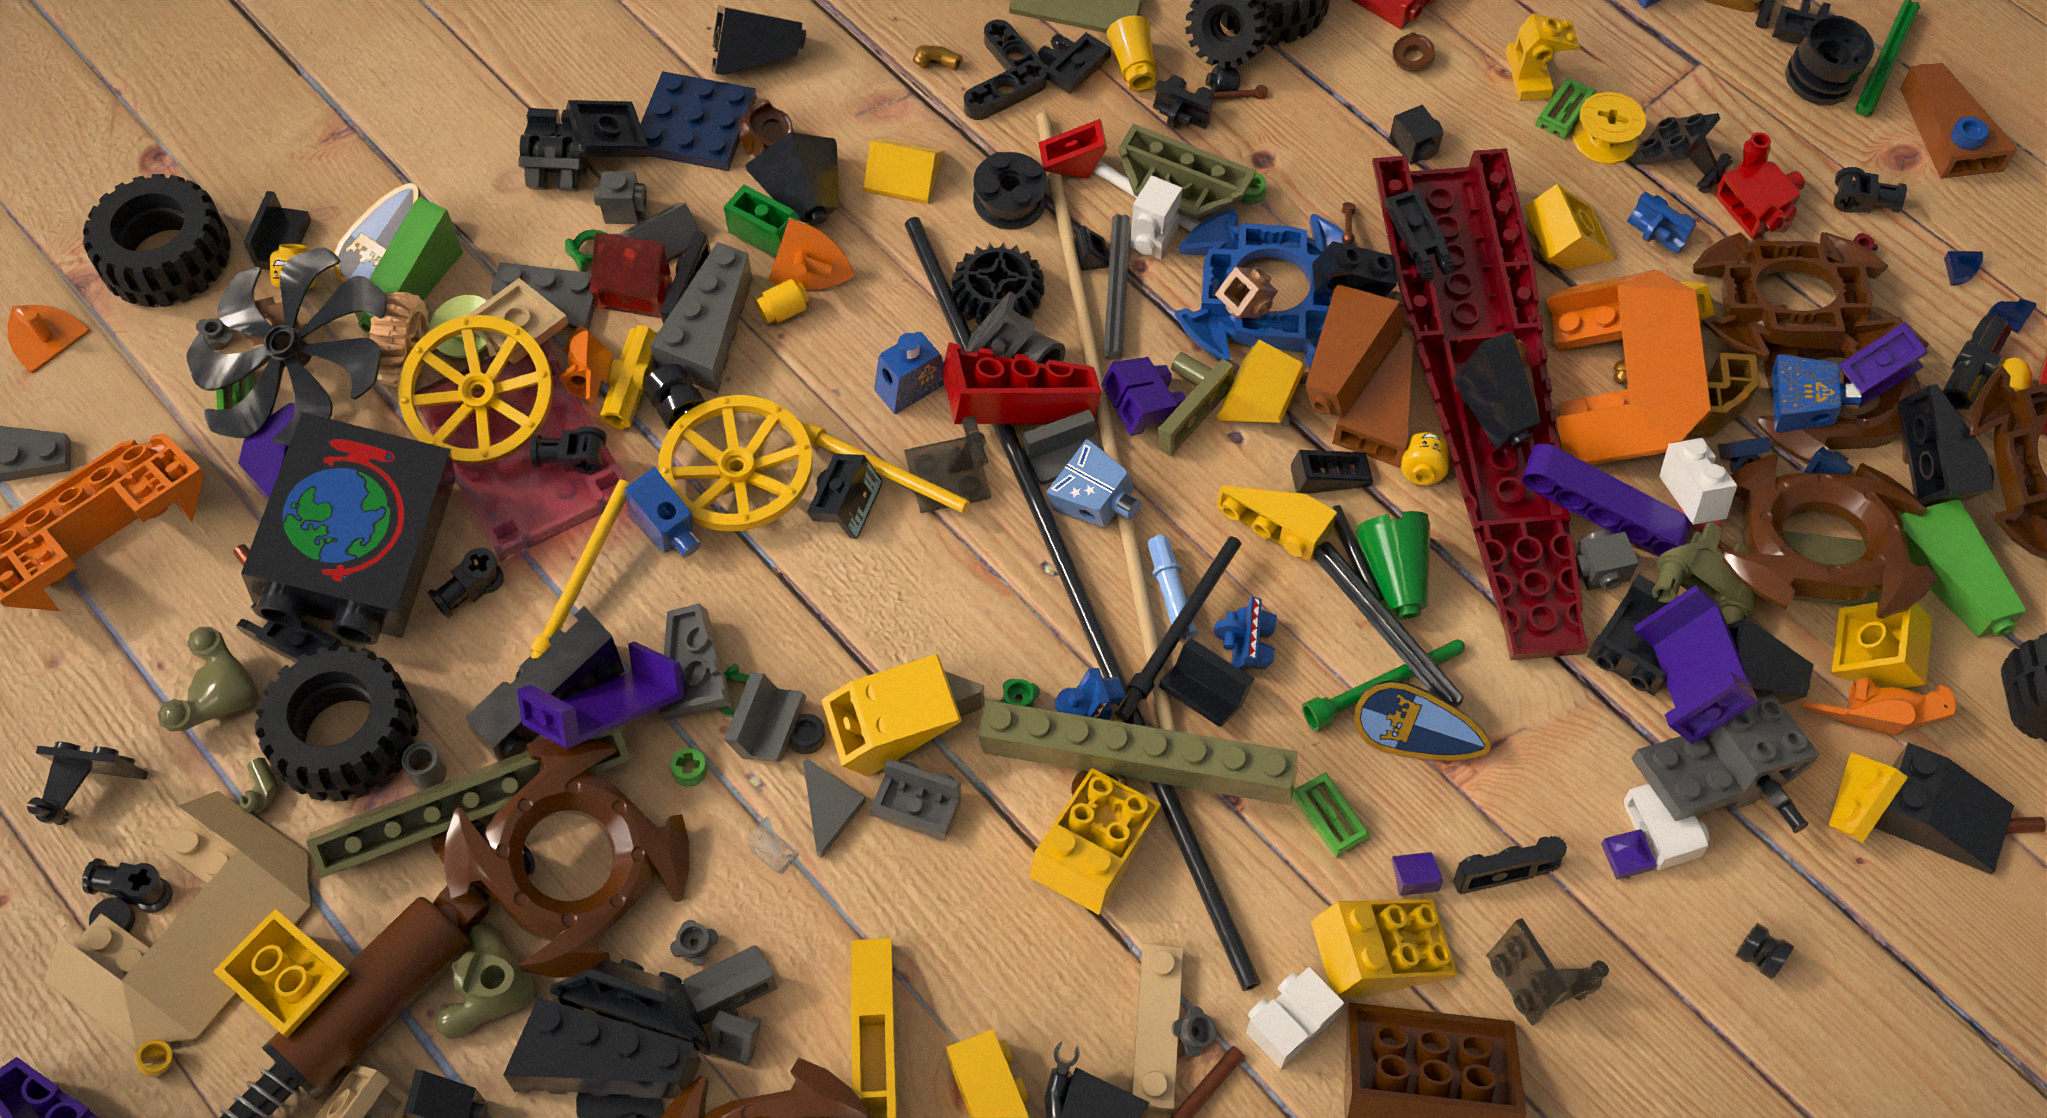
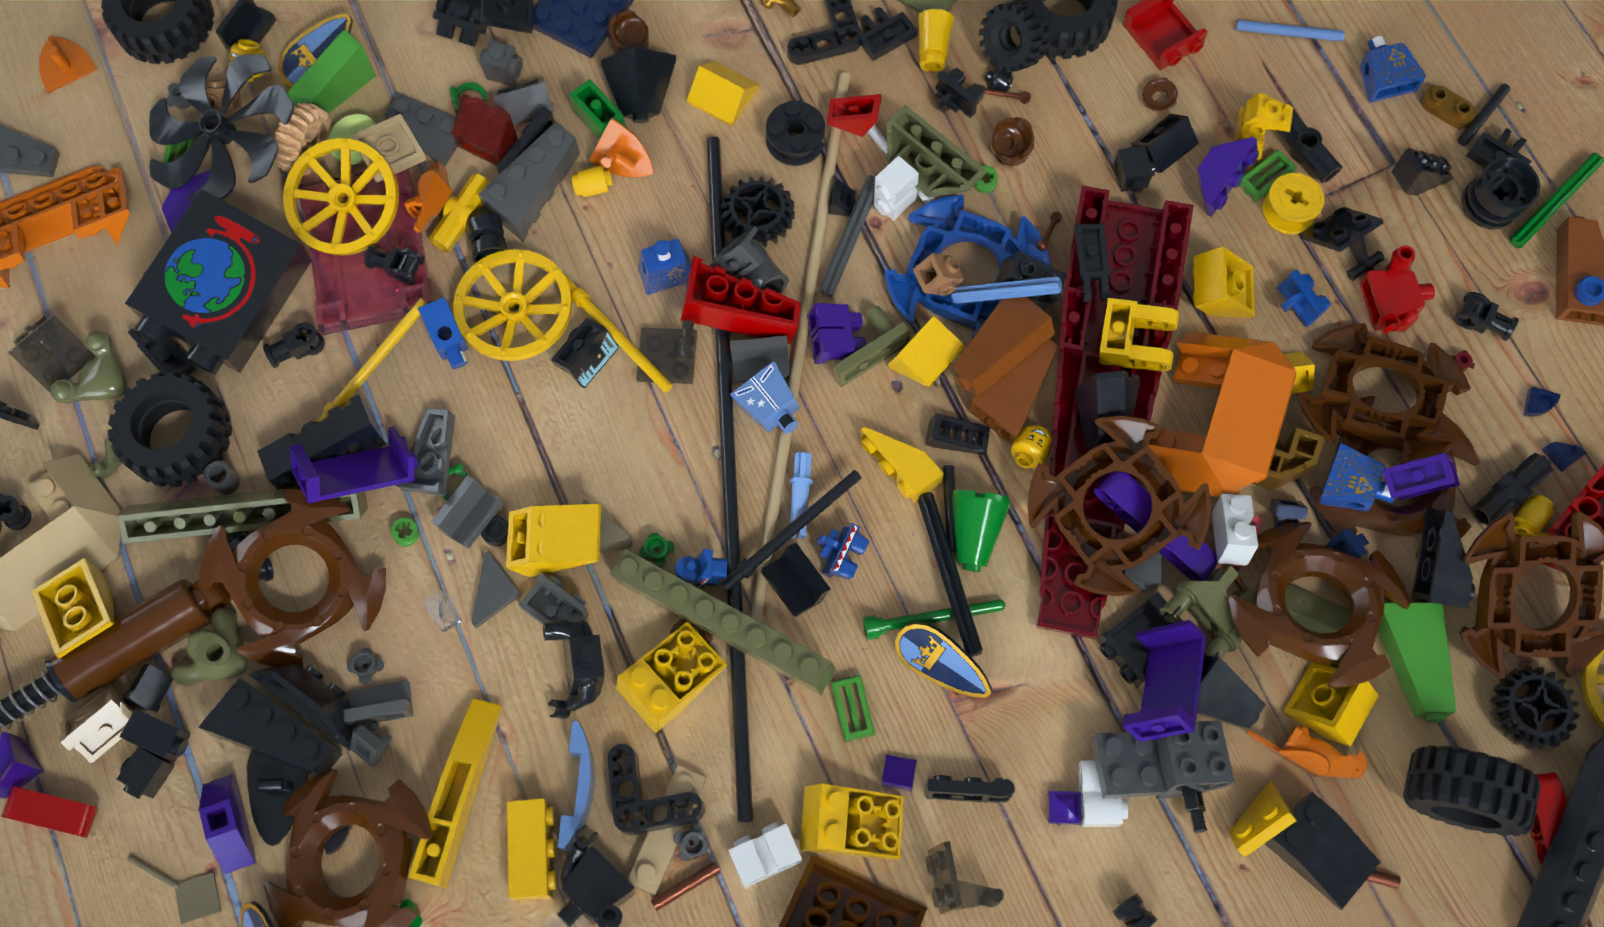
camera: 20 degrees right, 10 degrees up
(139, 673) = (50, 351): none -> clear smoke plate
(410, 1050) = (148, 688): none -> black tile
(979, 853) = (582, 664): none -> black torso
(1016, 960) = (580, 748): none -> medium blue slope
(1108, 1006) = (634, 803): none -> black beam
(1270, 136) = (1013, 140): none -> reddish brown hair
(1335, 287) = (1007, 290): none -> medium blue axle
(1444, 95) = (1168, 141): none -> black panel
(1481, 312) = (1118, 333): none -> yellow brick
(1519, 111) = (1223, 170): none -> dark purple slope
(1568, 547) = (1168, 517): none -> reddish brown piece
(1600, 67) = (1315, 156): none -> black piece
(1733, 59) = (1421, 171): none -> black slope

